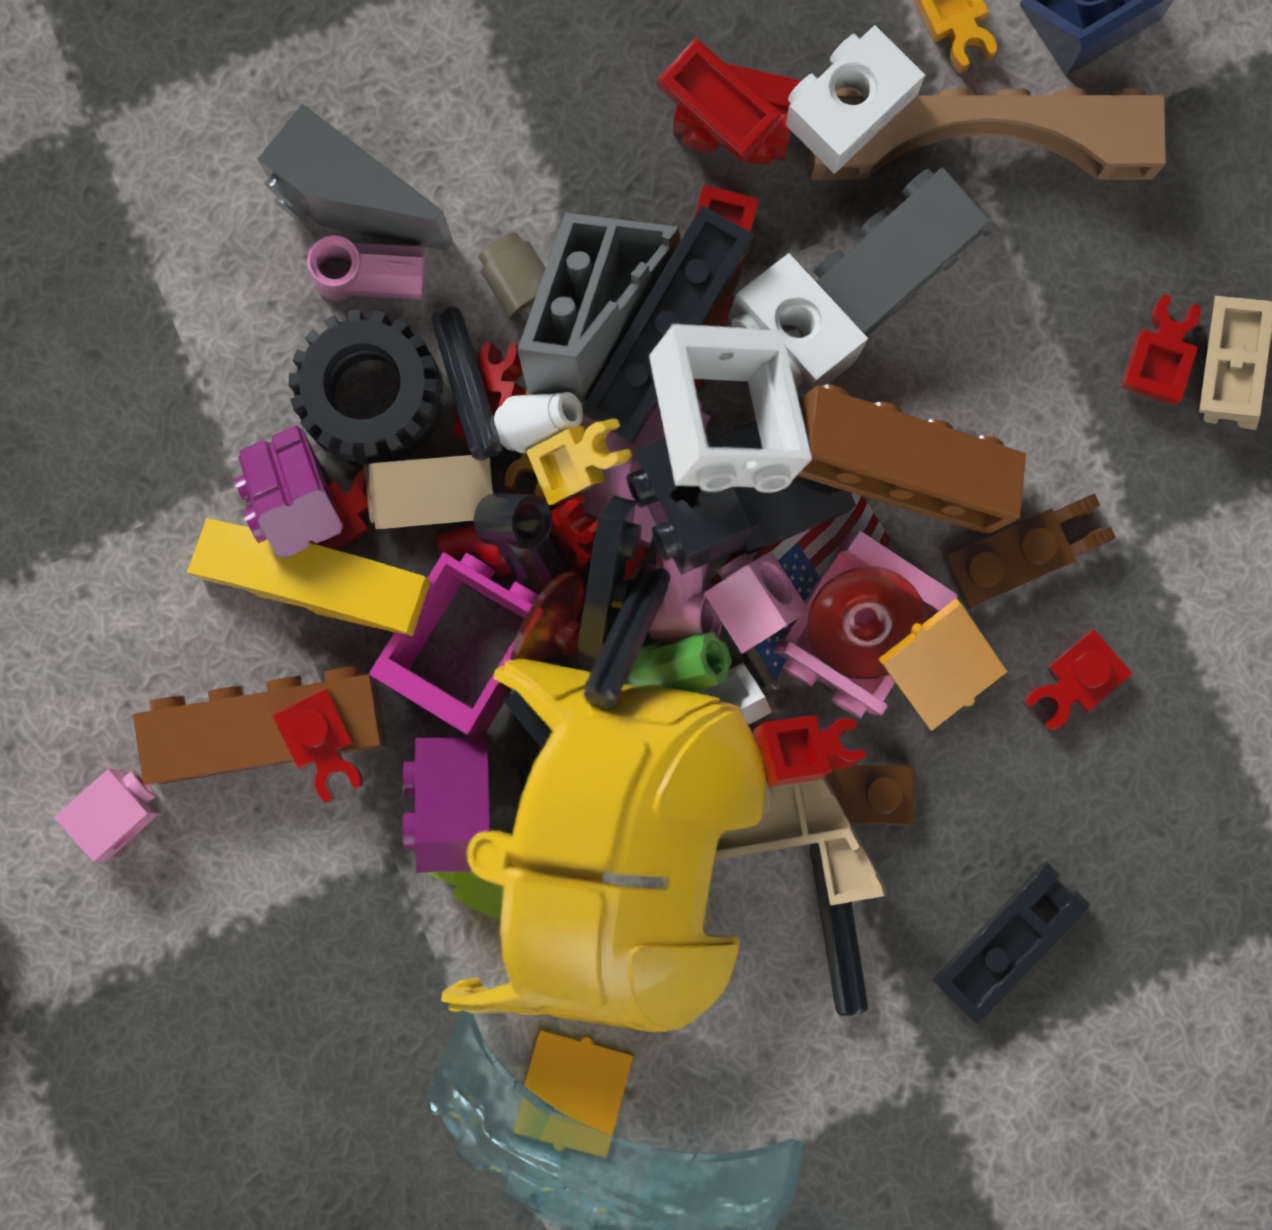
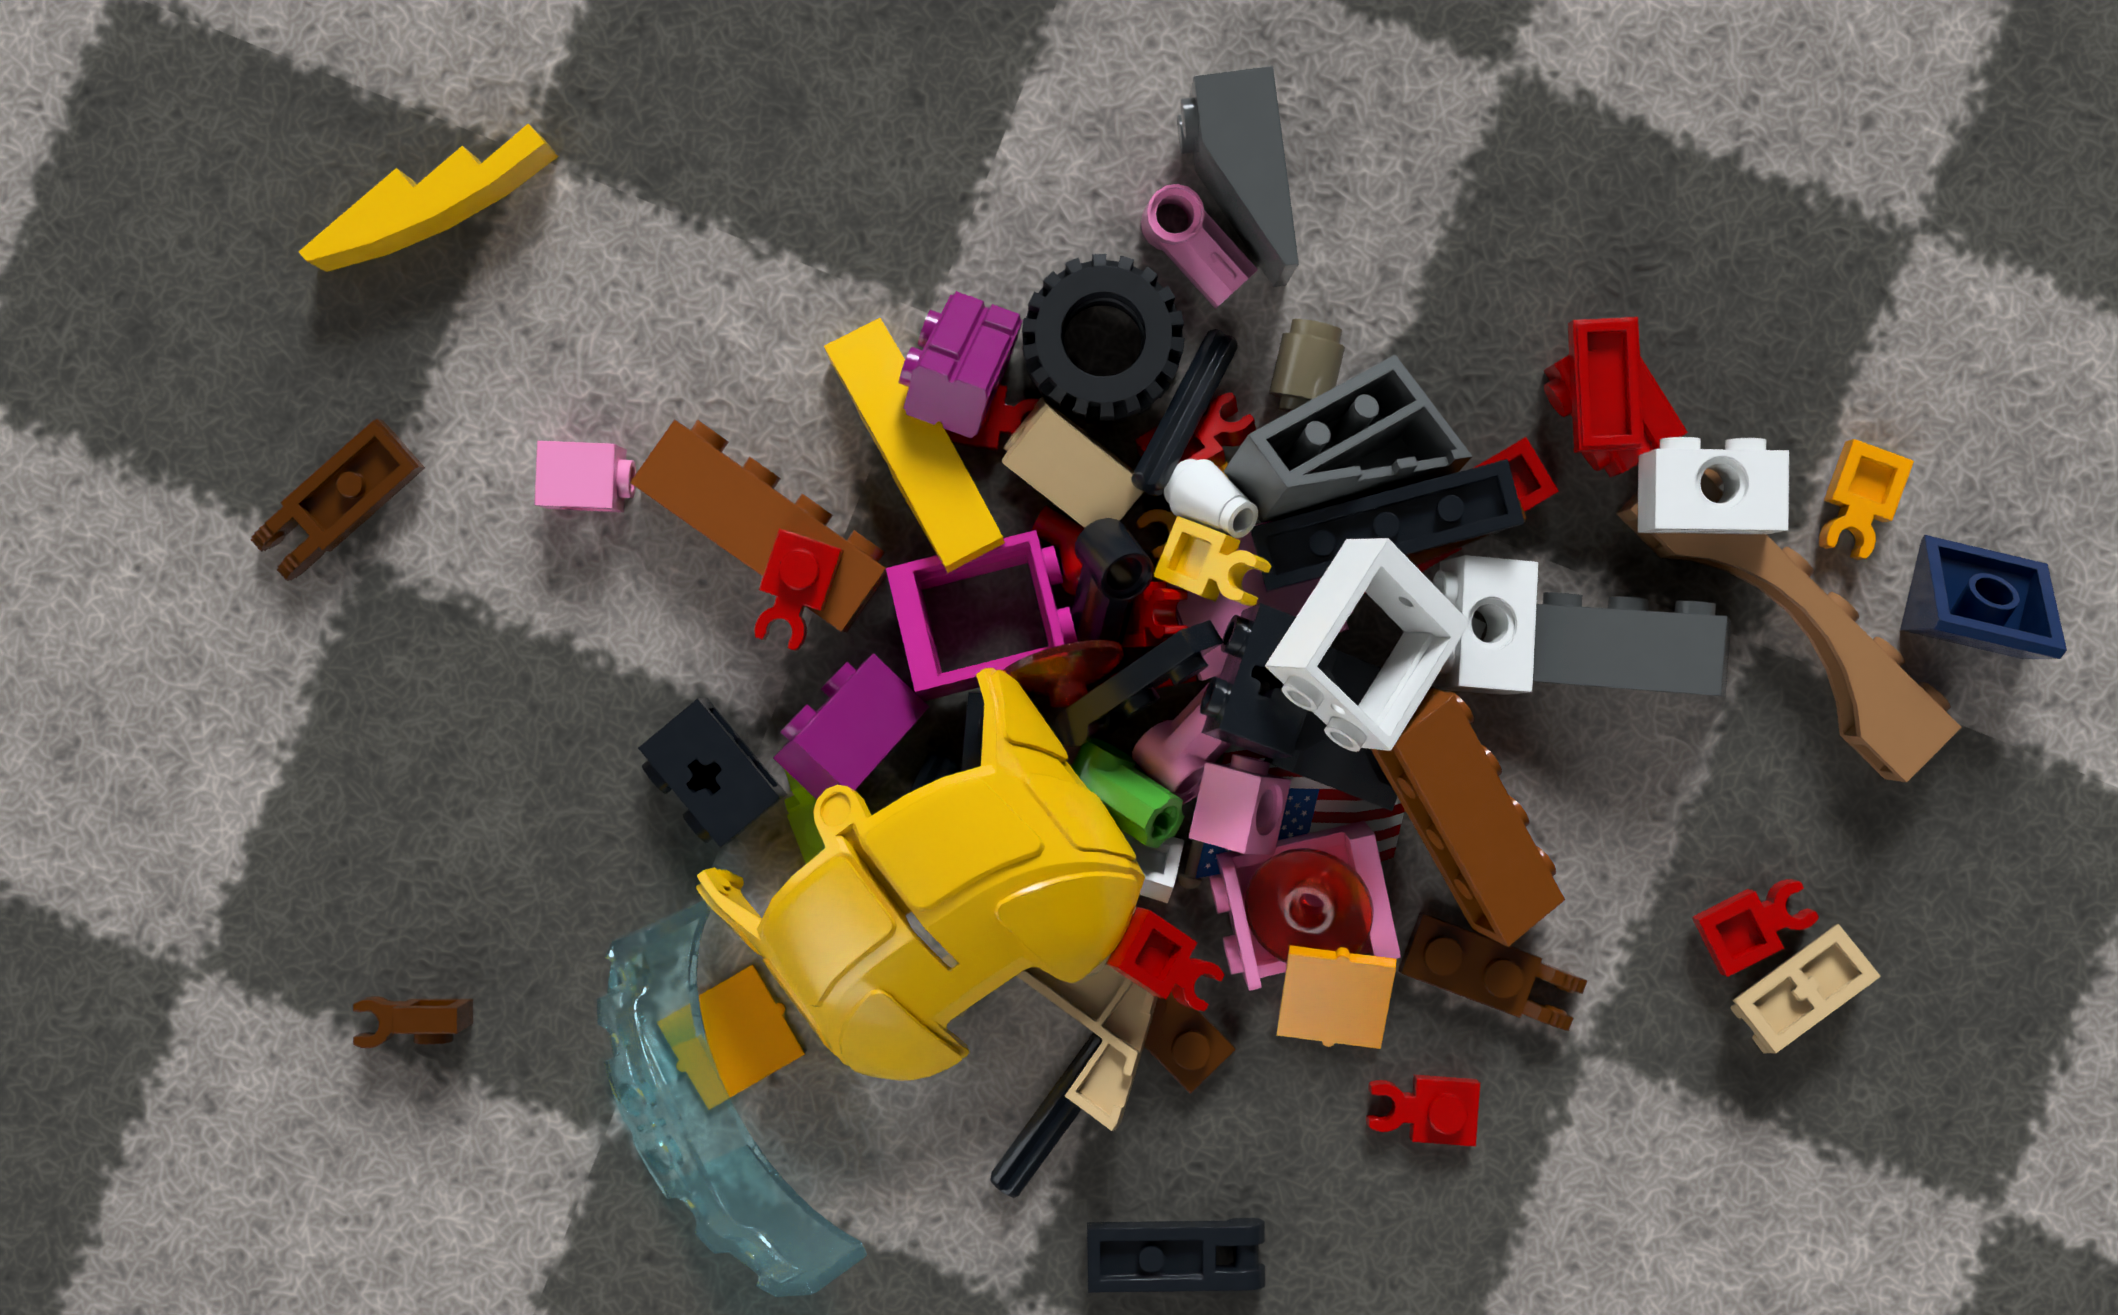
camera: 40 degrees right, 5 degrees up
(355, 907) = (707, 738): none -> black brick
(626, 637) = (1111, 742): black axle -> none

